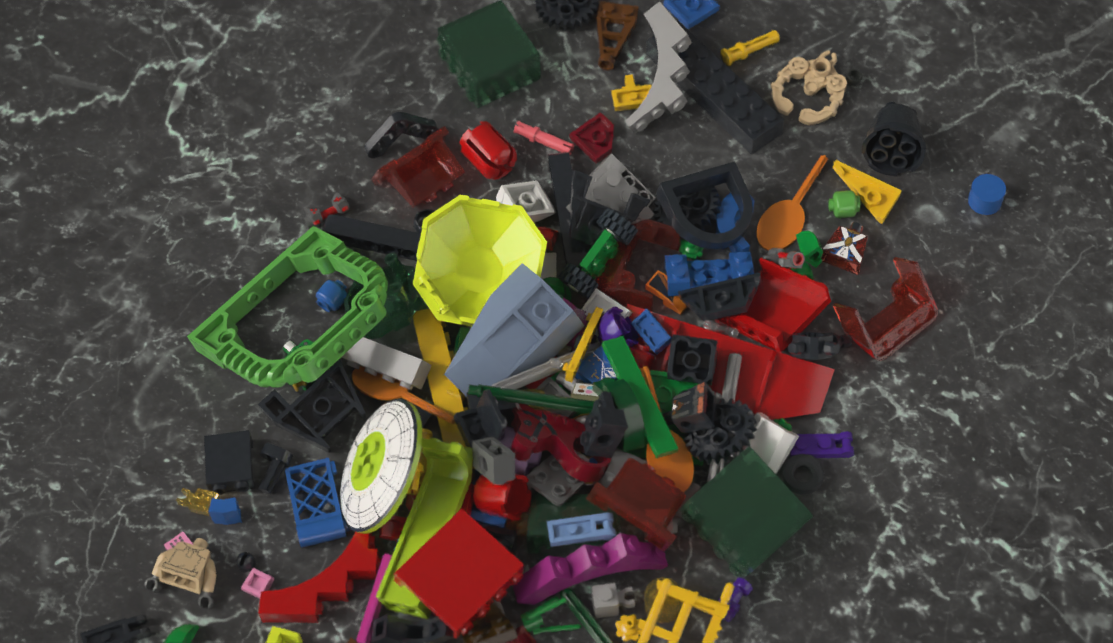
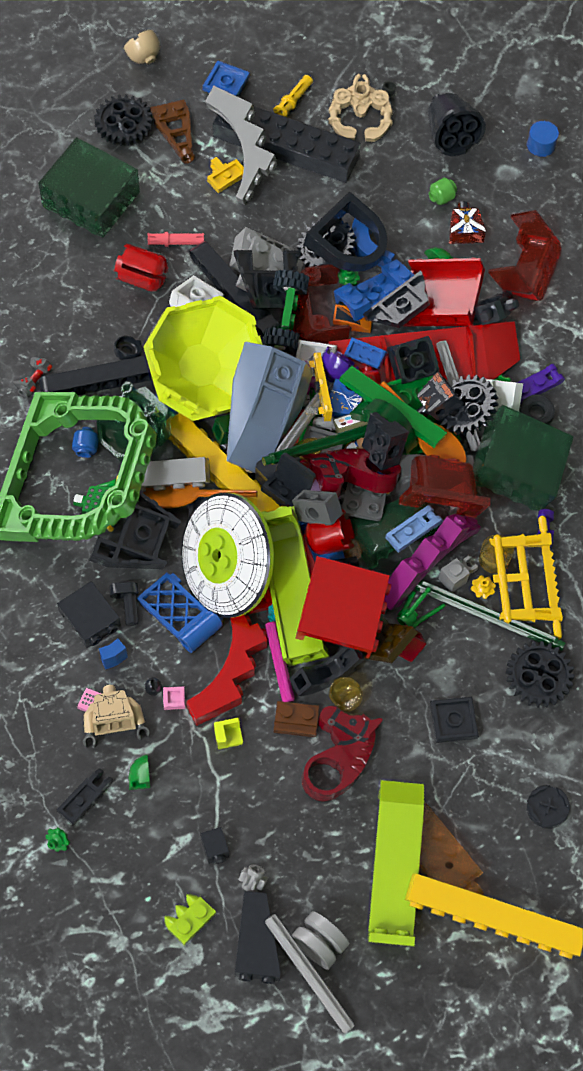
camera: 35 degrees left, 5 degrees up
(199, 501) = (86, 657): clear yellow plate -> none
(395, 125) = (55, 276): black beam -> none
(422, 170) = (95, 306): clear red windscreen -> none
(595, 137) = (217, 221): dark red plate -> none
(716, 327) = (413, 328): clear piece -> none
(779, 256) = (435, 251): dark grey piece -> none
(786, 218) = (403, 223): orange piece -> none
(810, 247) = (439, 234): green brick -> none
(873, 193) = (463, 174): yellow wing -> none

